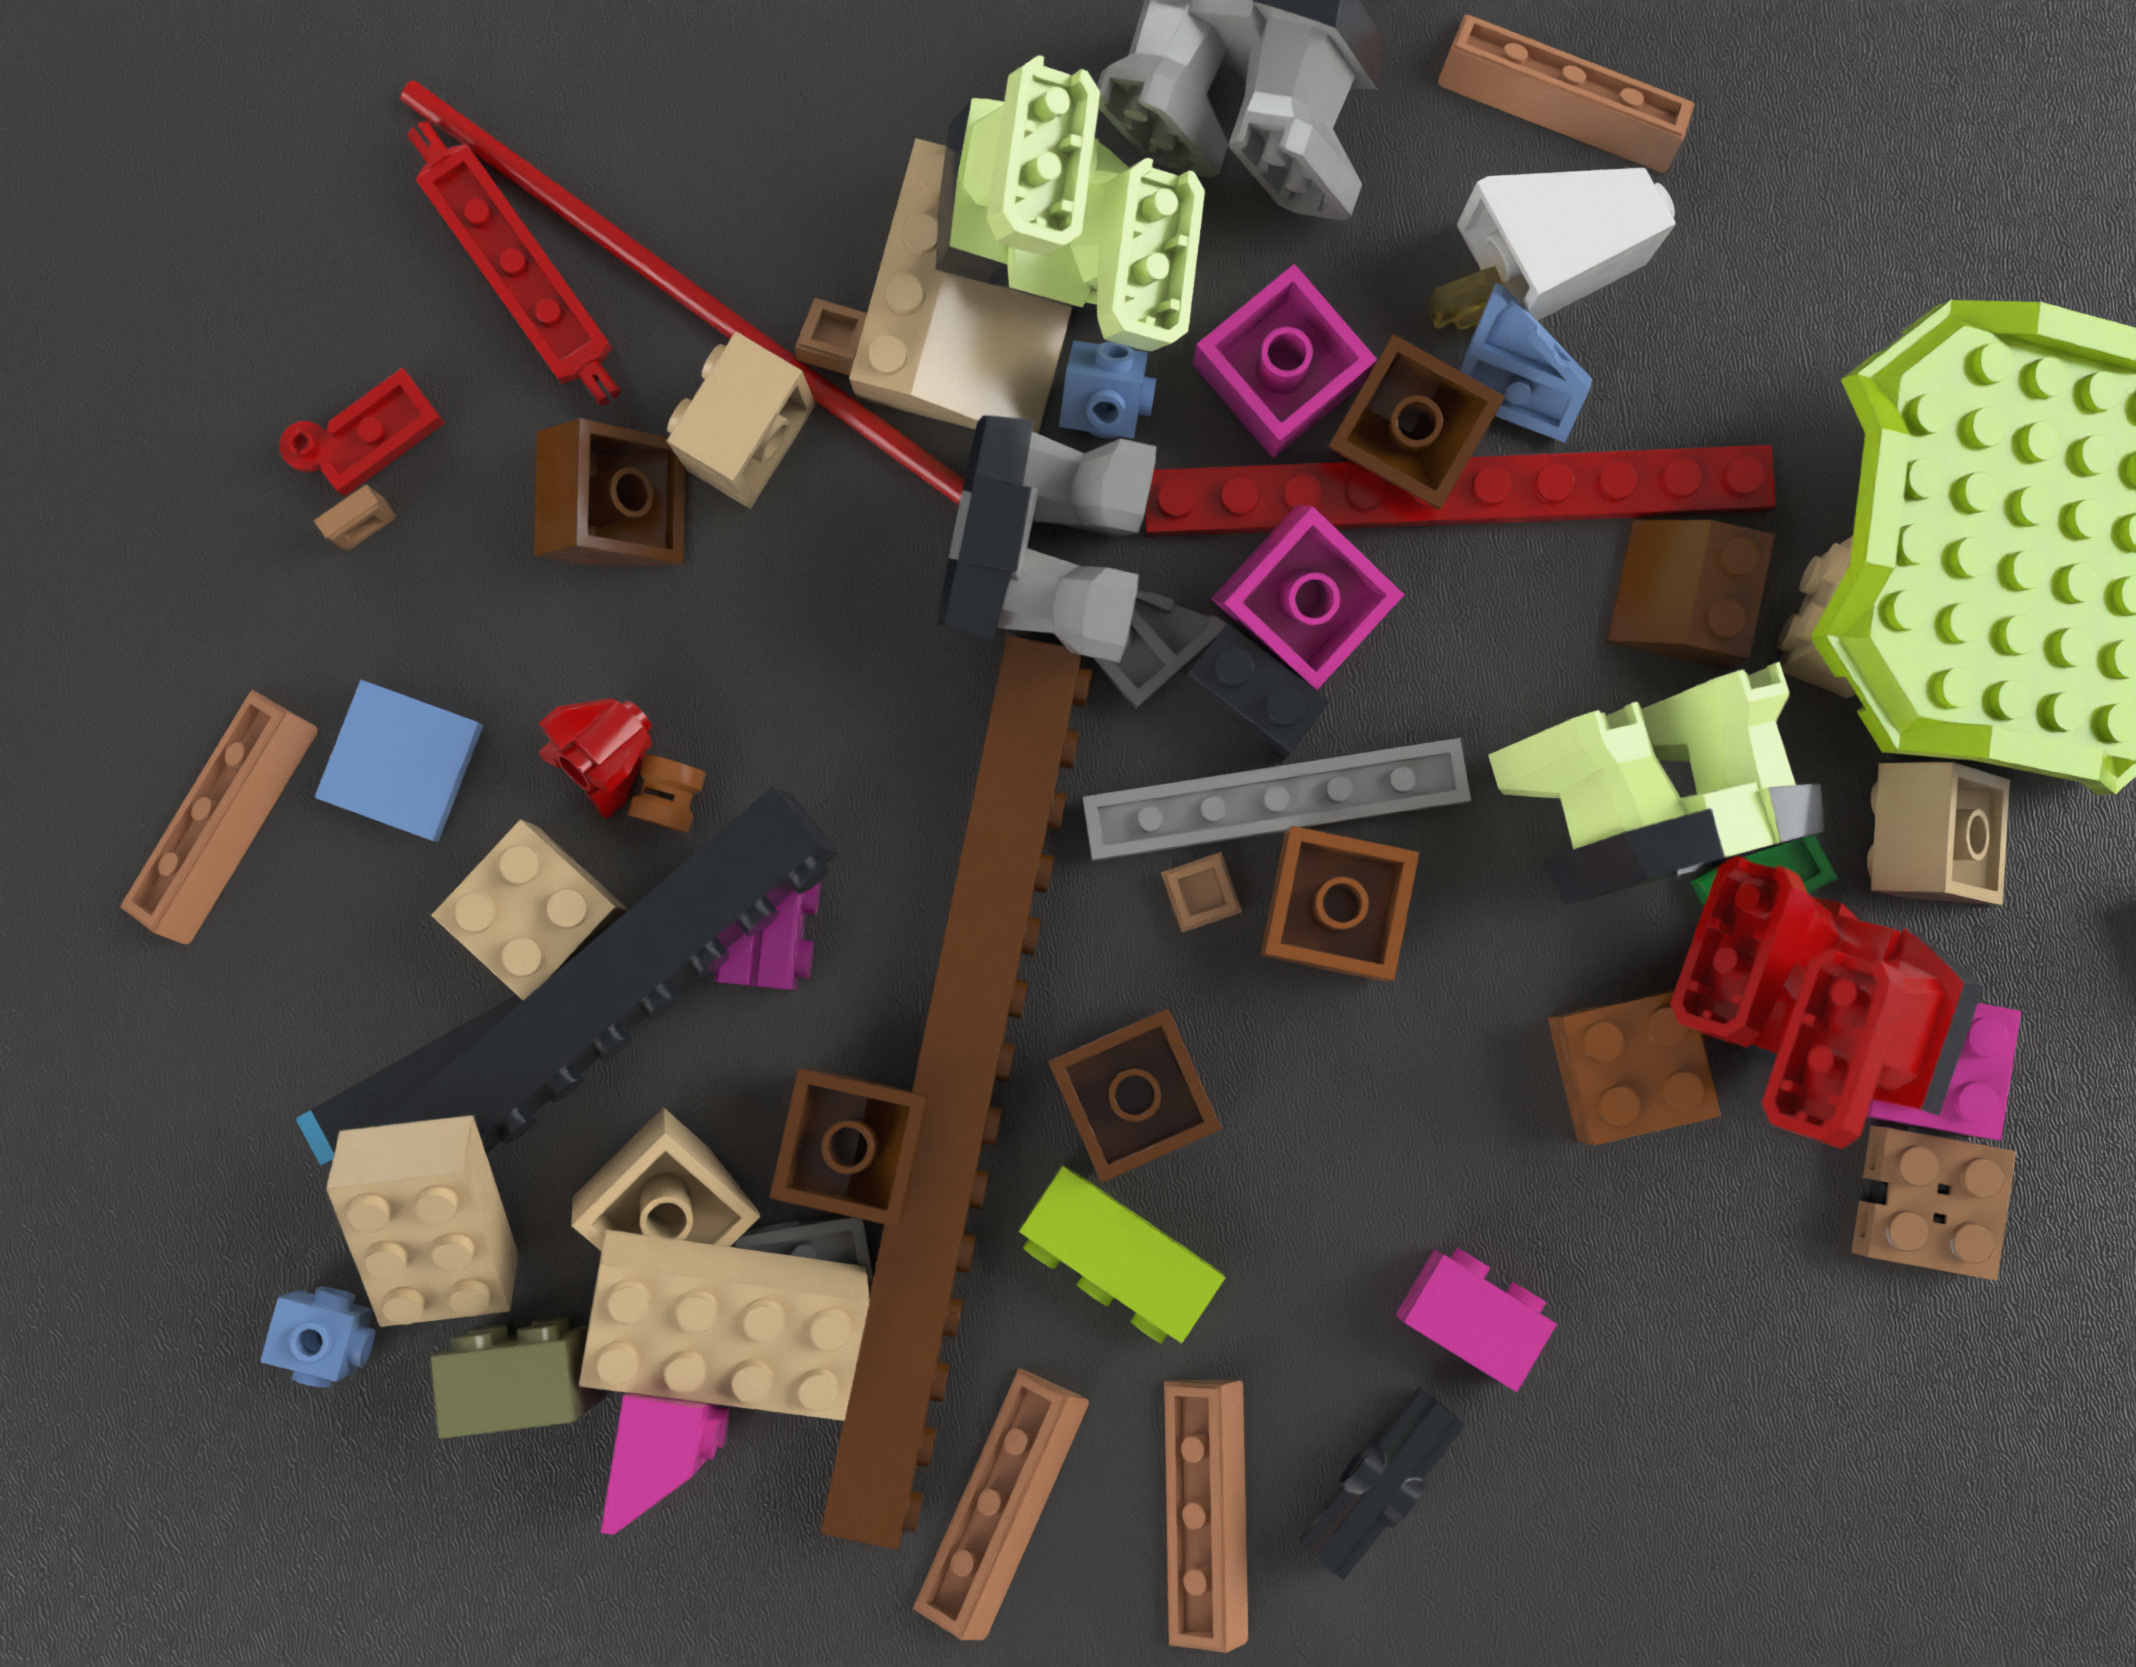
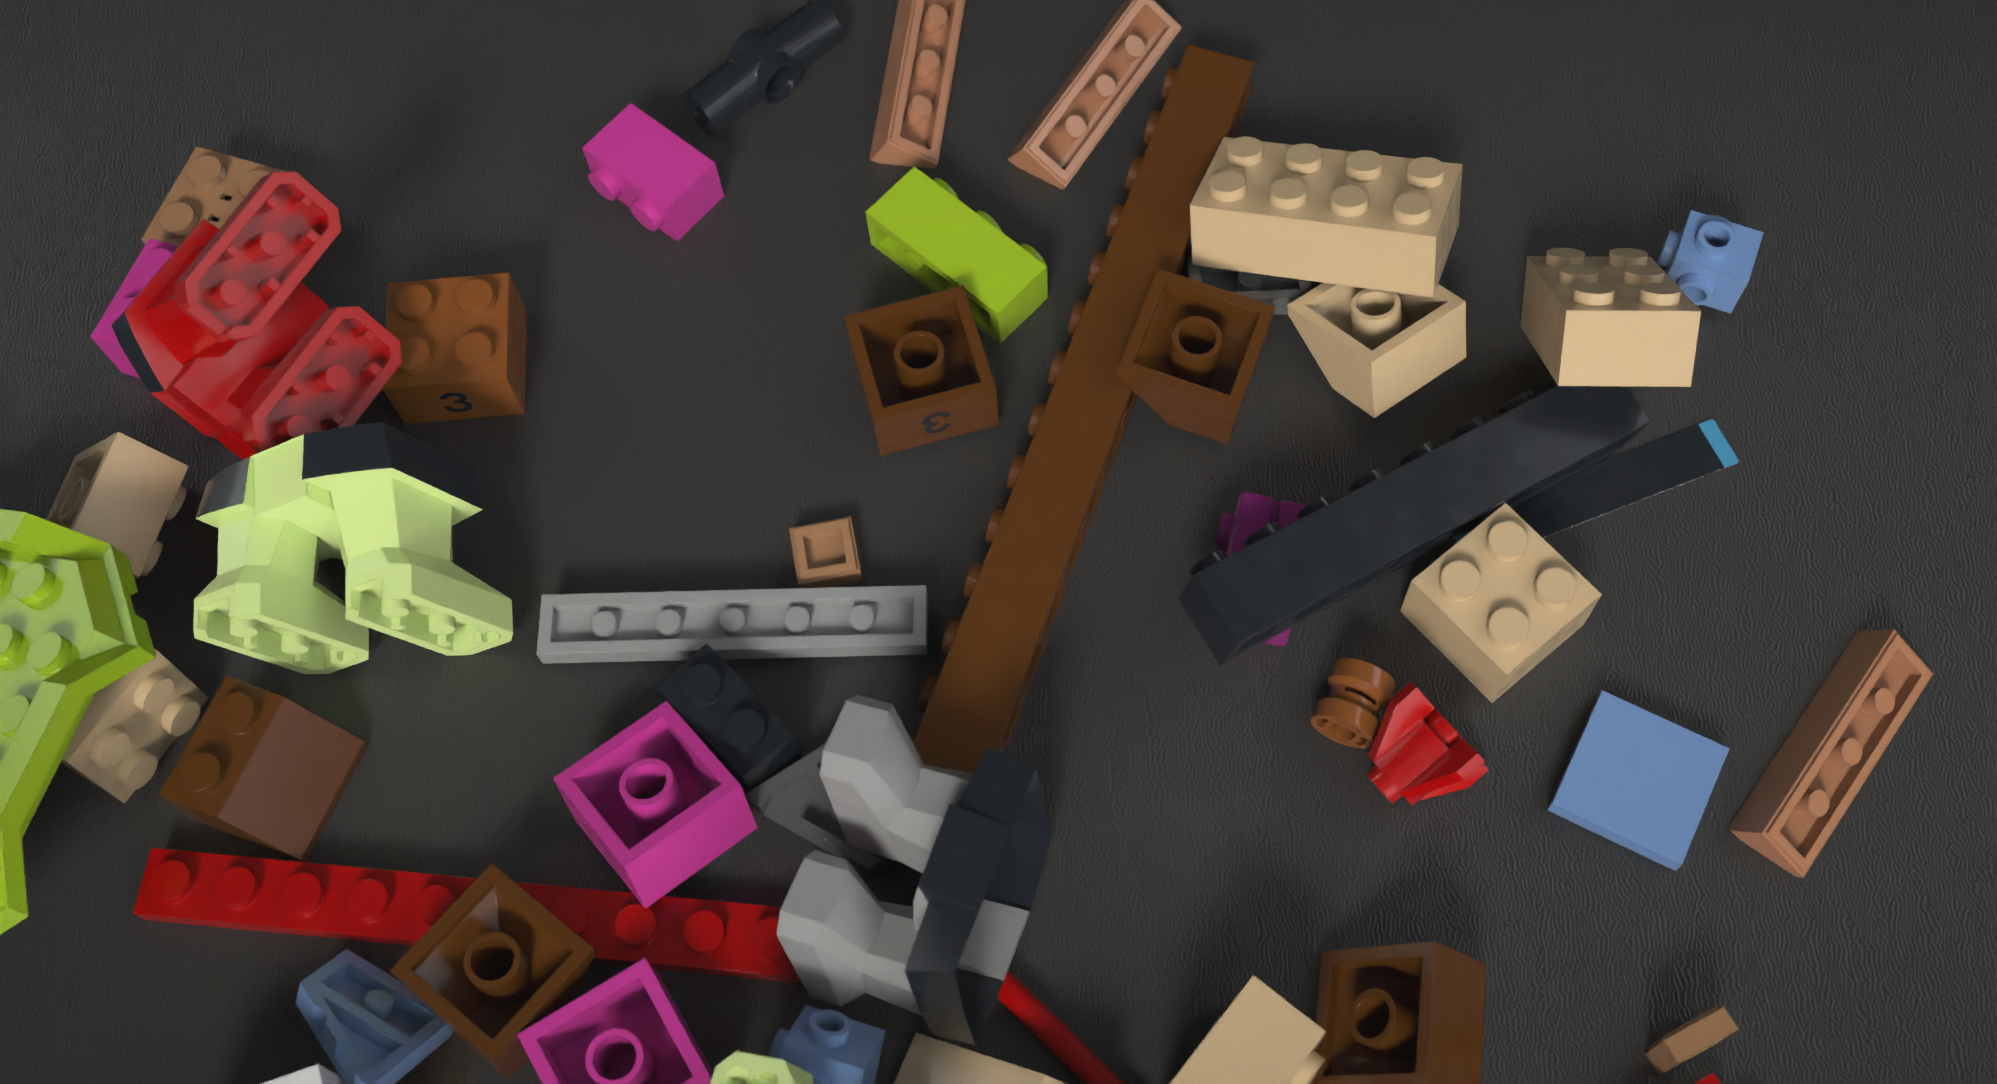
camera: 170 degrees left, 20 degrees down
(511, 1380) = (1524, 196): olive brick -> none
(658, 1450) = (1393, 110): dark pink slope -> none
(1339, 904) = (692, 508): dark orange brick -> none

